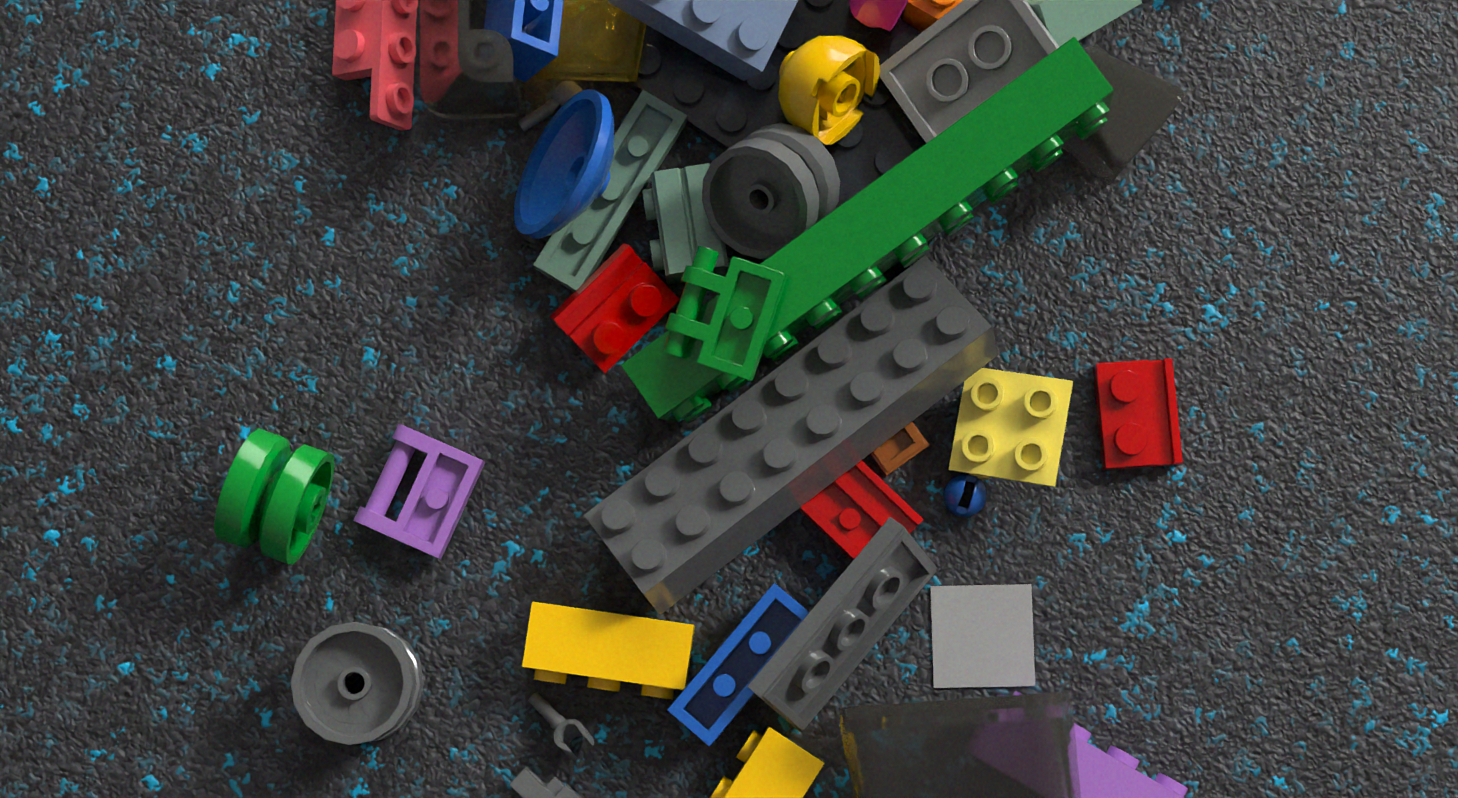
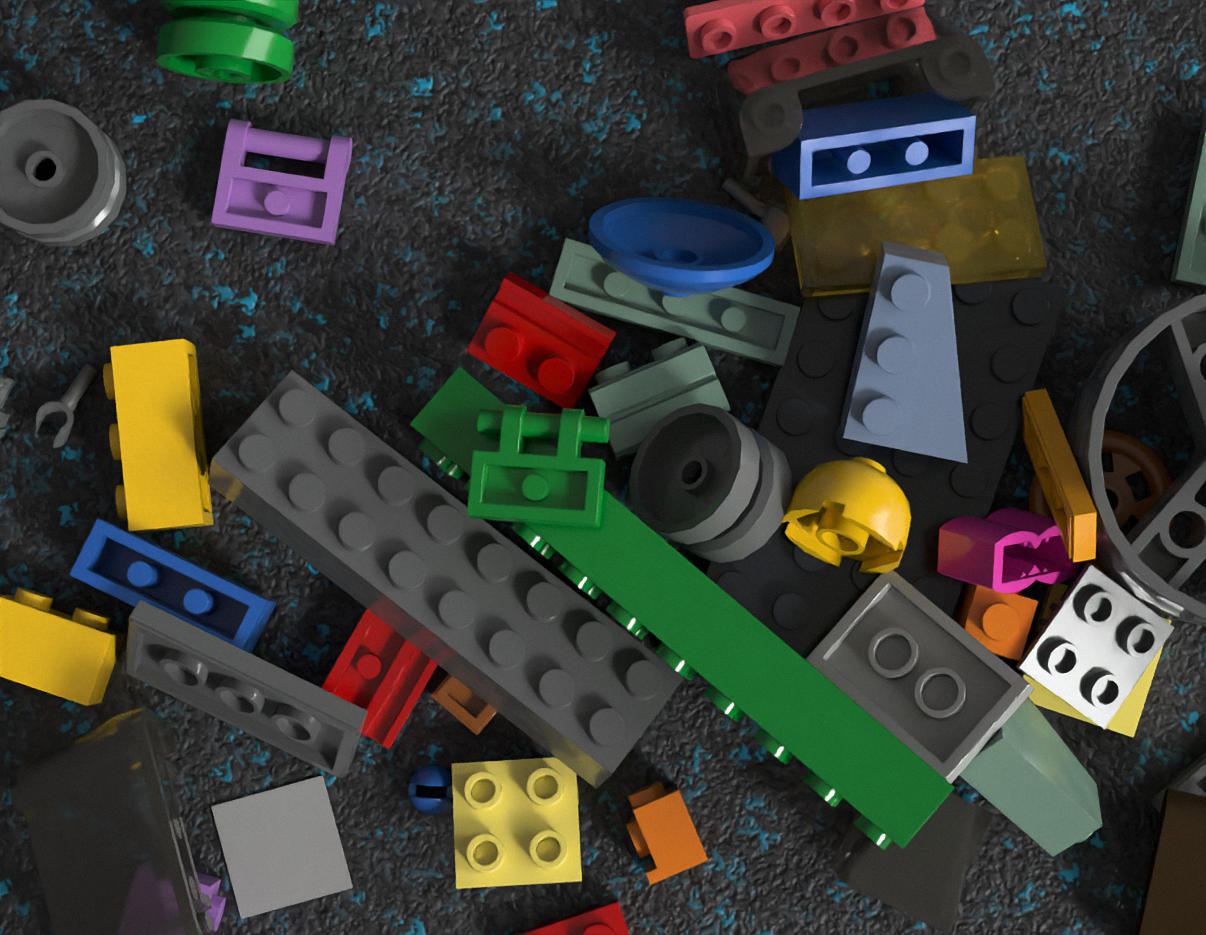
camera: 80 degrees right, 5 degrees up
(1047, 308) = (664, 831): none -> orange brick

